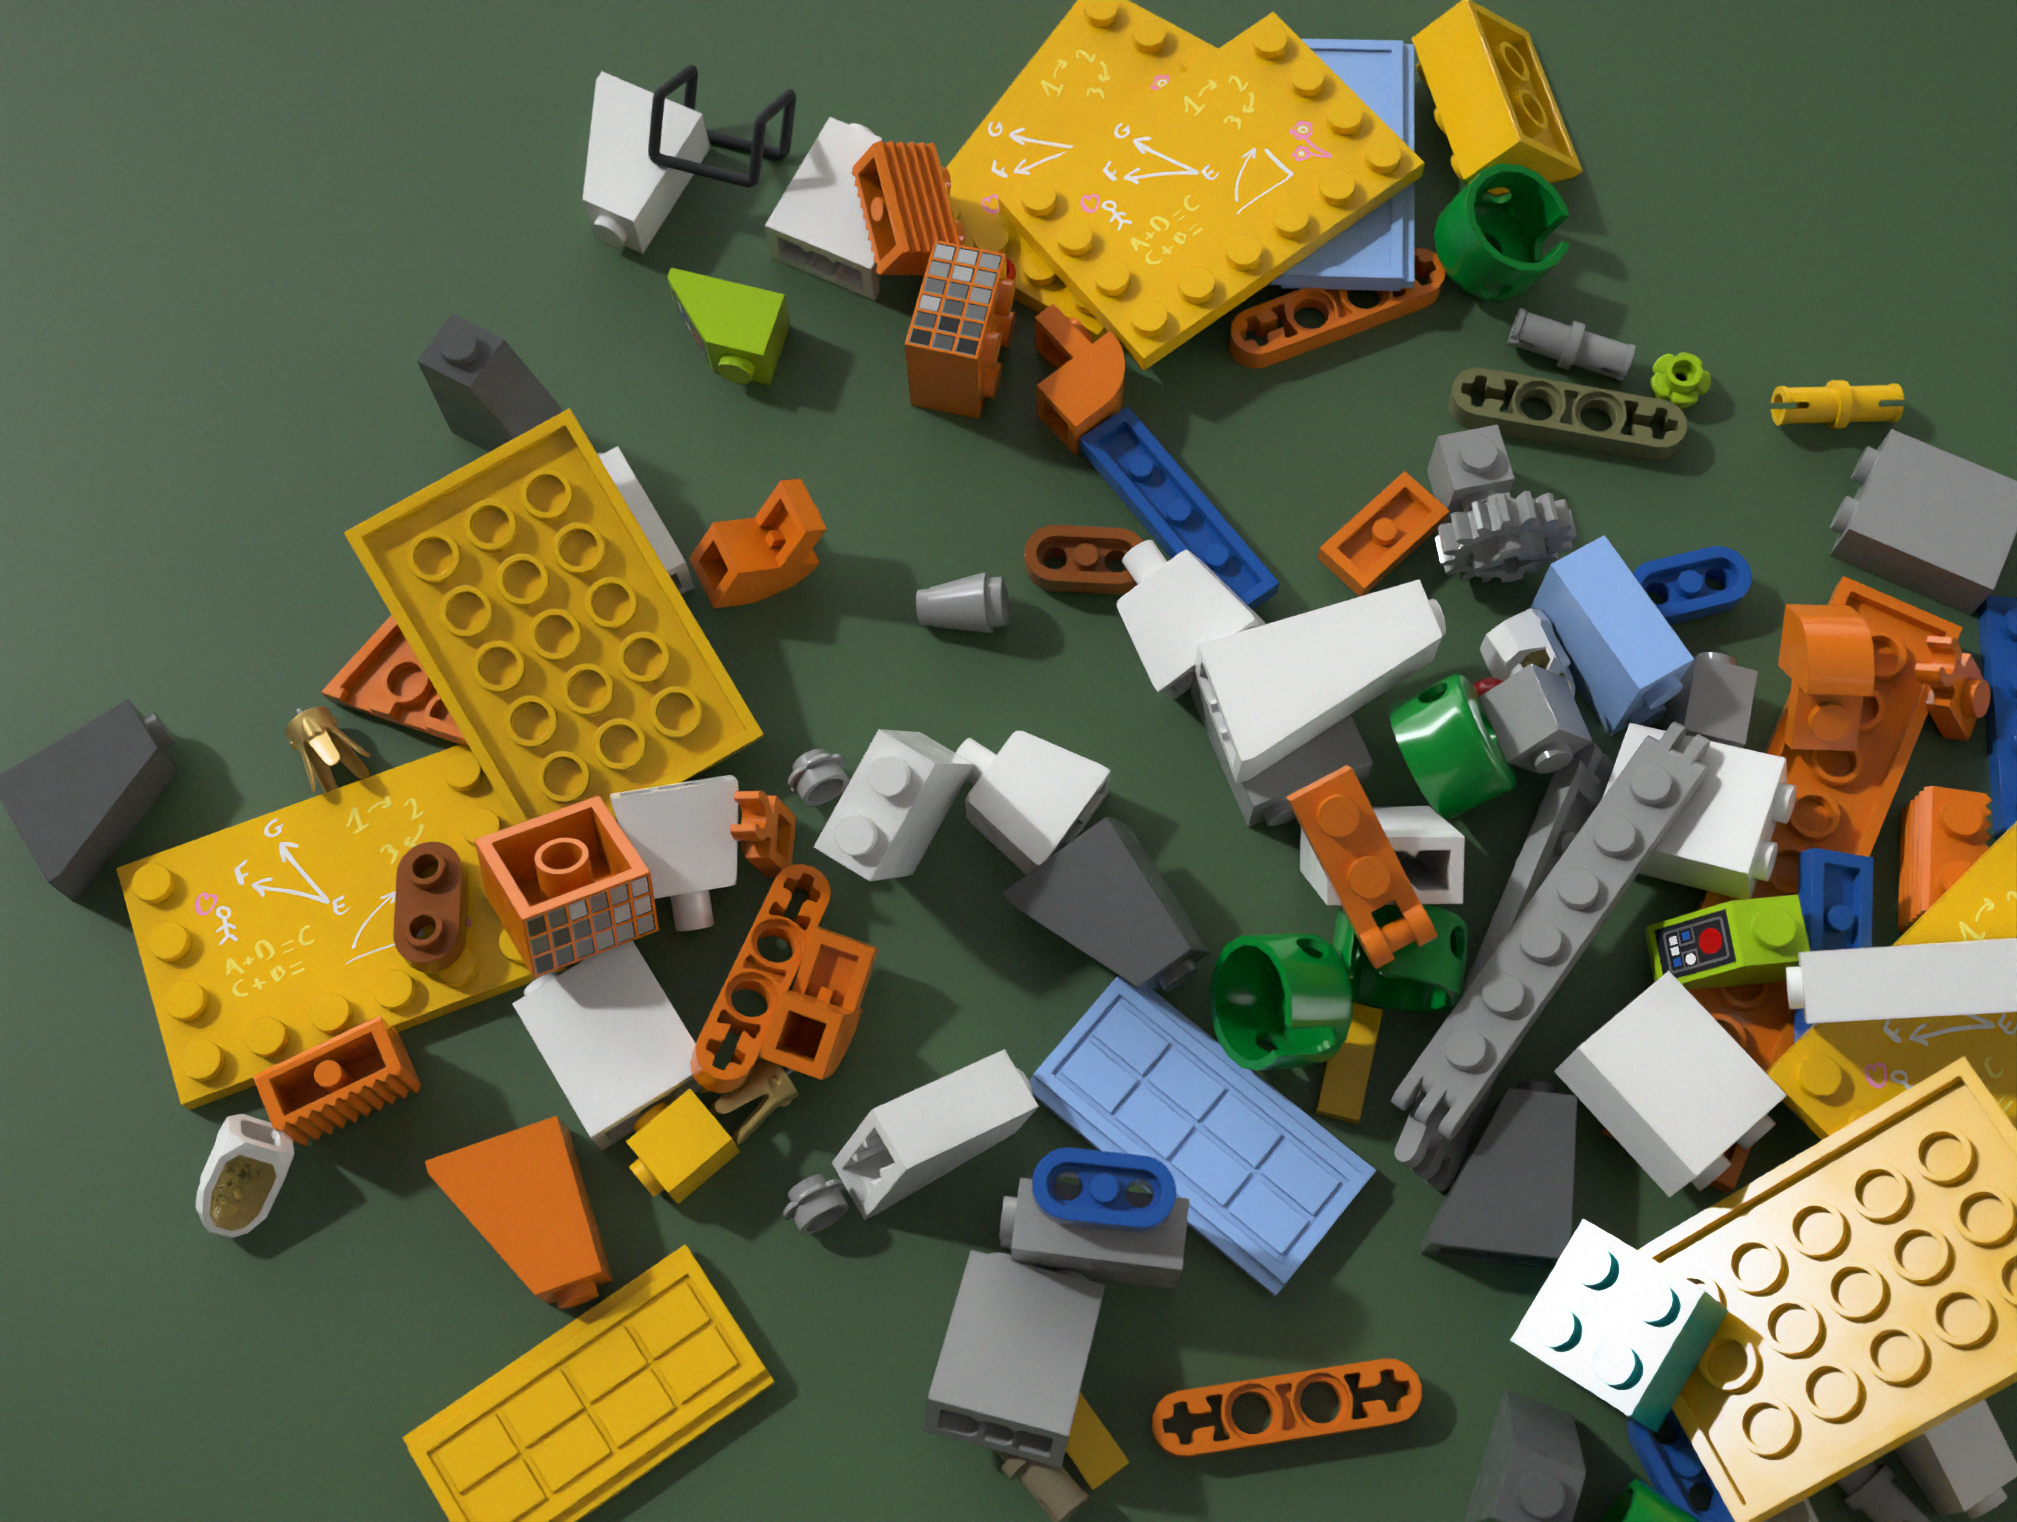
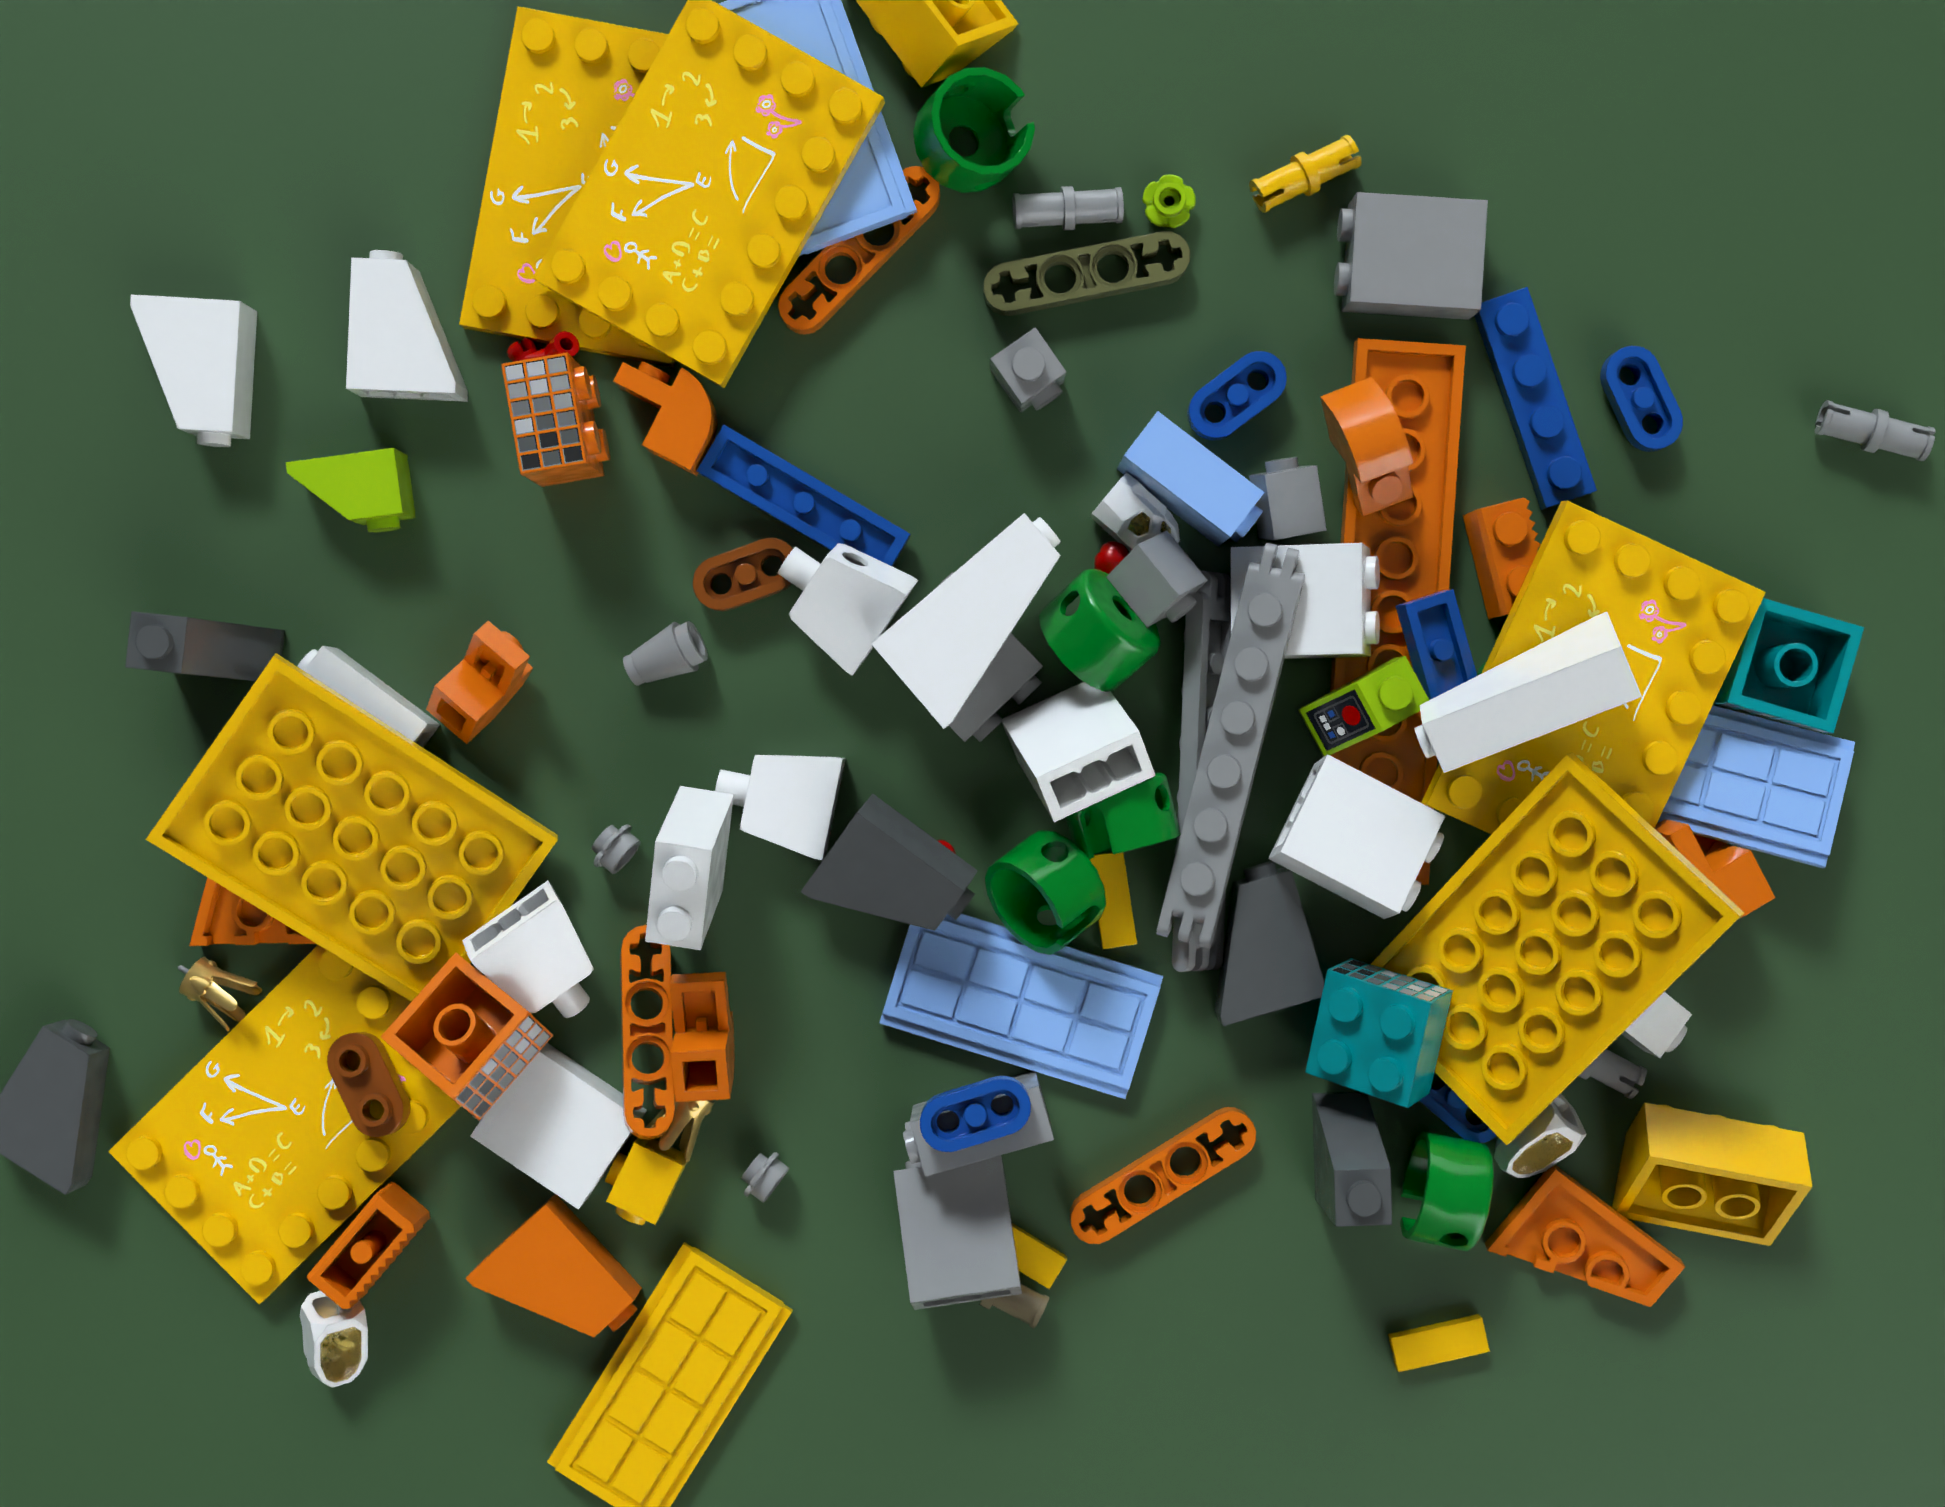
camera: 25 degrees left, 20 degrees up
(756, 147) = (307, 262): black piece -> none
(765, 831) = (597, 917): orange plate -> none
(905, 205) = (462, 326): orange brick -> none
(933, 1131) = (831, 1089): white slope -> none
(1360, 864) = (1067, 788): orange plate -> none
(1383, 534) = (976, 451): orange plate -> none
(1505, 537) = (1077, 426): light grey gear -> none
(1957, 688) = (1474, 405): orange plate -> none

